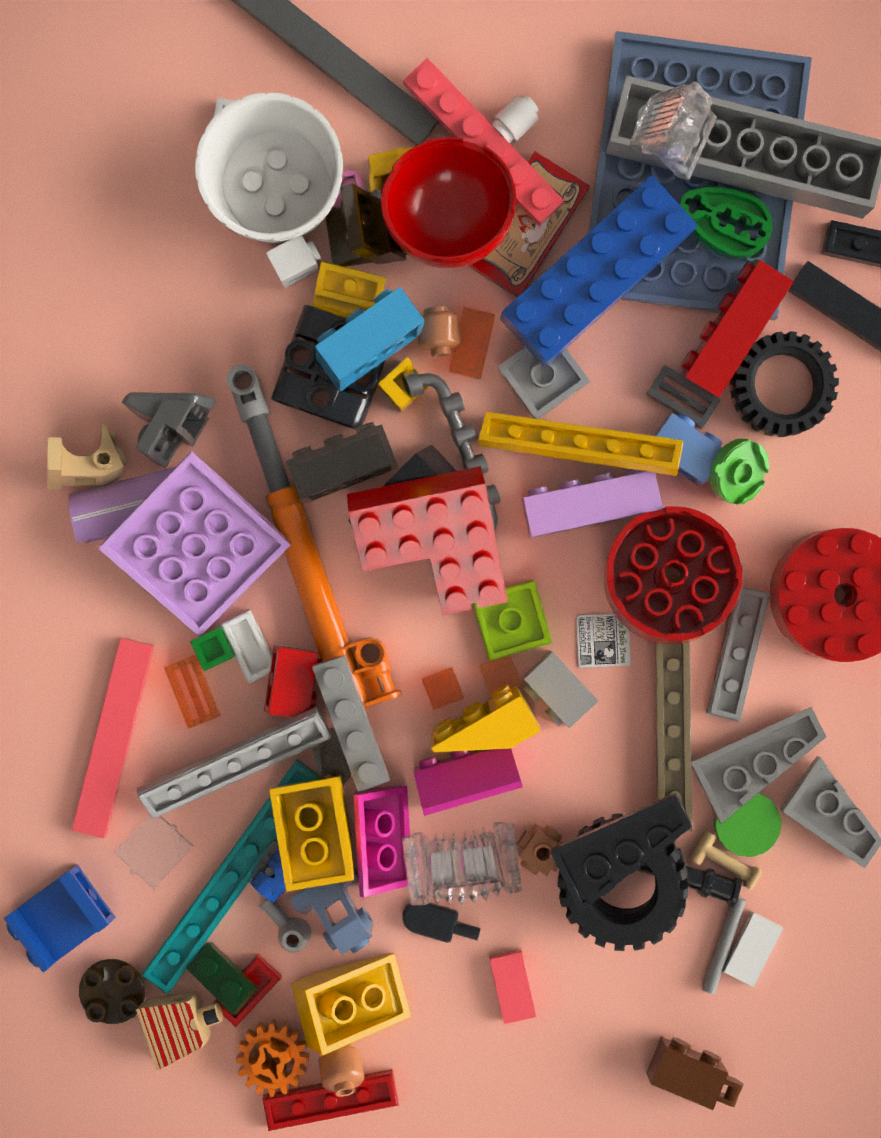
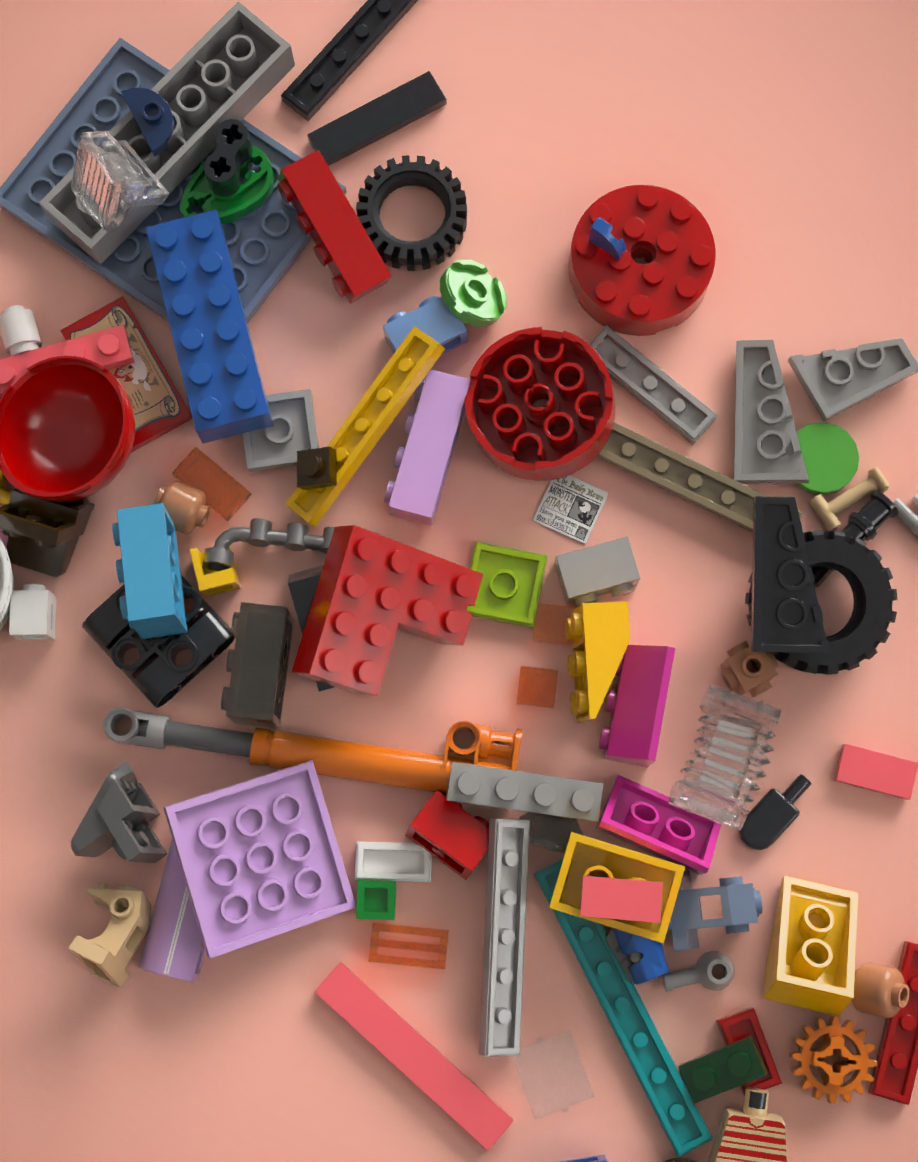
camera: 55 degrees left, 10 degrees down
(302, 843) = (621, 899): none -> coral tile
(346, 289) = (90, 576): yellow plate -> none
(525, 423) = (316, 468): none -> dark brown plate
(689, 385) = (366, 300): dark grey tile -> none
(748, 209) = (229, 156): none -> black axle
(749, 127) = (152, 116): none -> dark blue plate
(839, 555) = (601, 237): none -> blue tile

